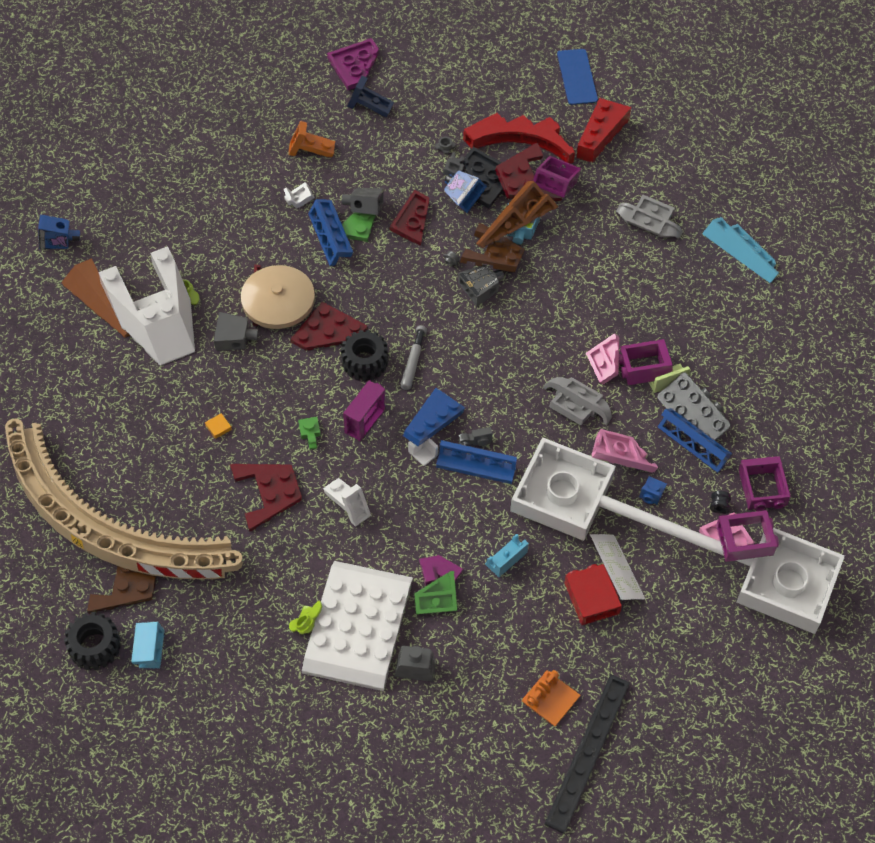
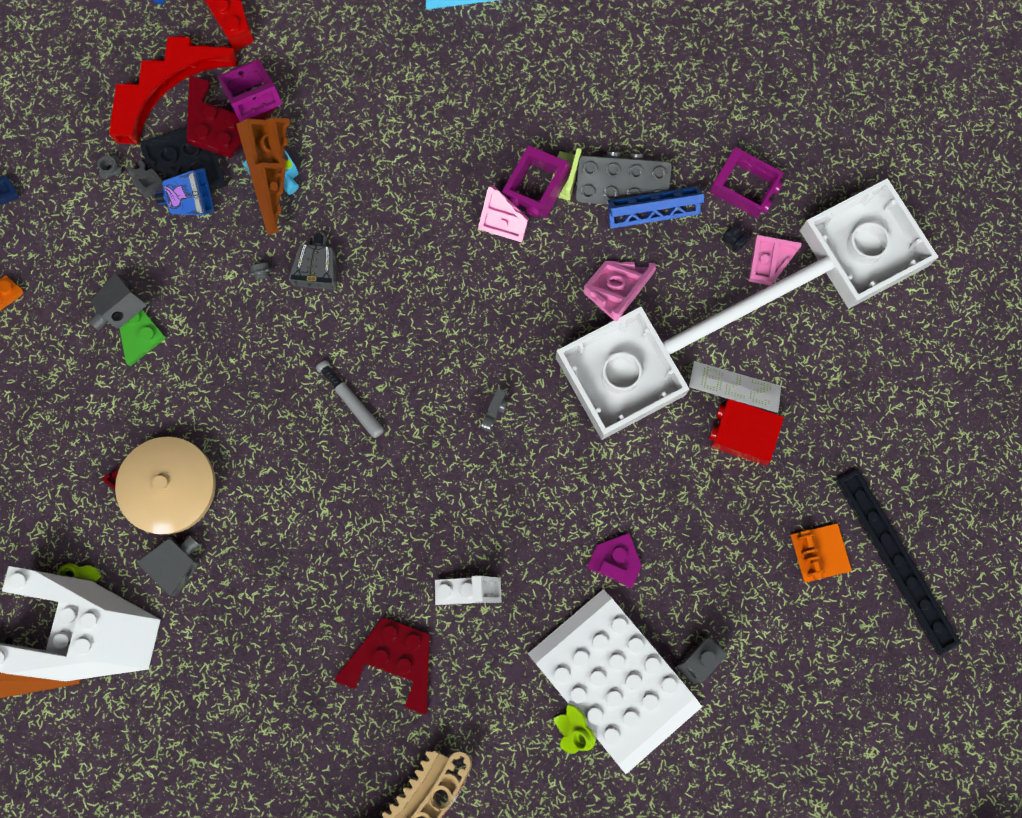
camera: 50 degrees left, 20 degrees up
(218, 426) = (275, 660): light orange tile -> none
(298, 196) = (48, 366): white bracket -> none
(309, 429) = (353, 568): bright green plate -> none
(326, 328) = (244, 460): dark red plate -> none
(332, 235) = (124, 367): blue fence -> none
(364, 367) = (297, 434): black tyre -> none
(364, 410) = (381, 498): magenta window -> none
(412, 218) = (176, 272): dark red wing -> none
(425, 452) = (467, 471): white panel -> none
(432, 417) = (439, 430): blue wing -> none
(437, 596) = (643, 581): bright green wing -> none
(476, 463) = (522, 431): blue fence -> none
(501, 253) = (299, 220): reddish brown wing -> none
(507, 556) = (646, 480): medium azure hinge -> none
(577, 400) = (525, 280): light grey plate -> none
(651, 216) = (369, 40): light grey plate -> none
(652, 491) = (676, 288): blue bracket -> none
(727, 541) = (801, 268): magenta window -> none

